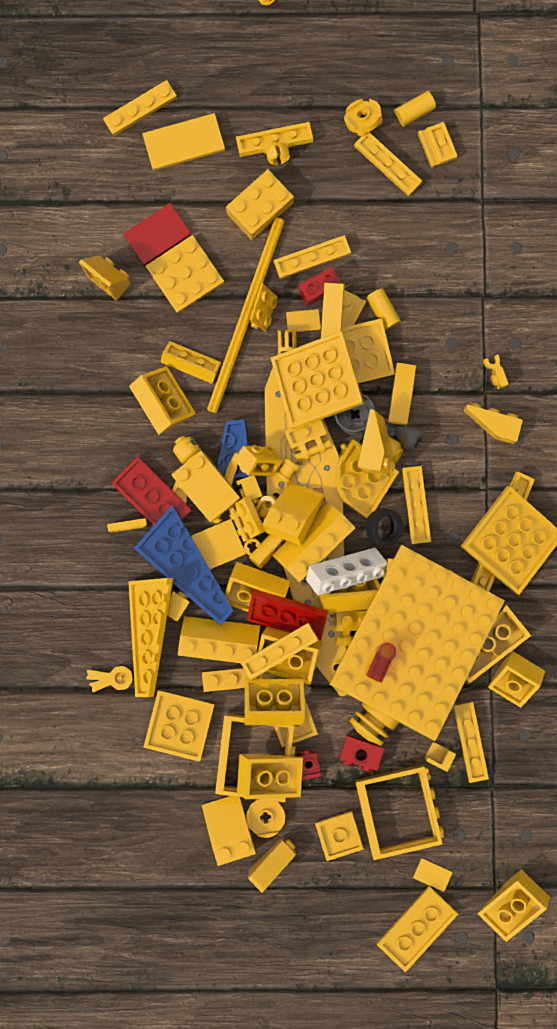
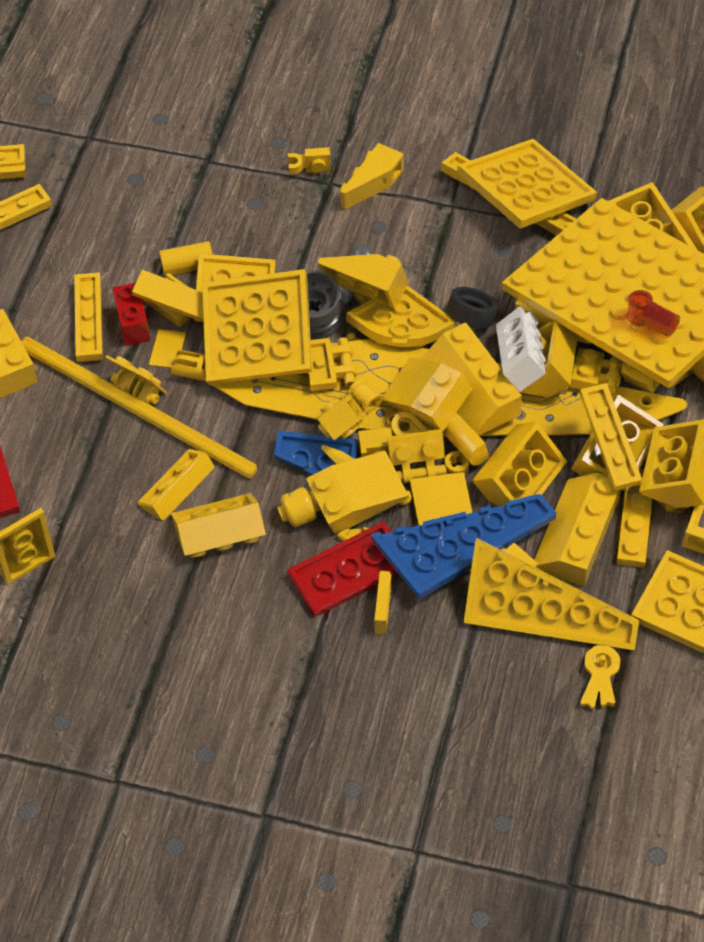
camera: 70 degrees left, 30 degrees down
(185, 274) = (52, 464): yellow plate -> none
(285, 613) = (557, 437): red tile -> none
(401, 394) = (296, 253): yellow slope -> none
(416, 505) = (453, 274): yellow plate -> none

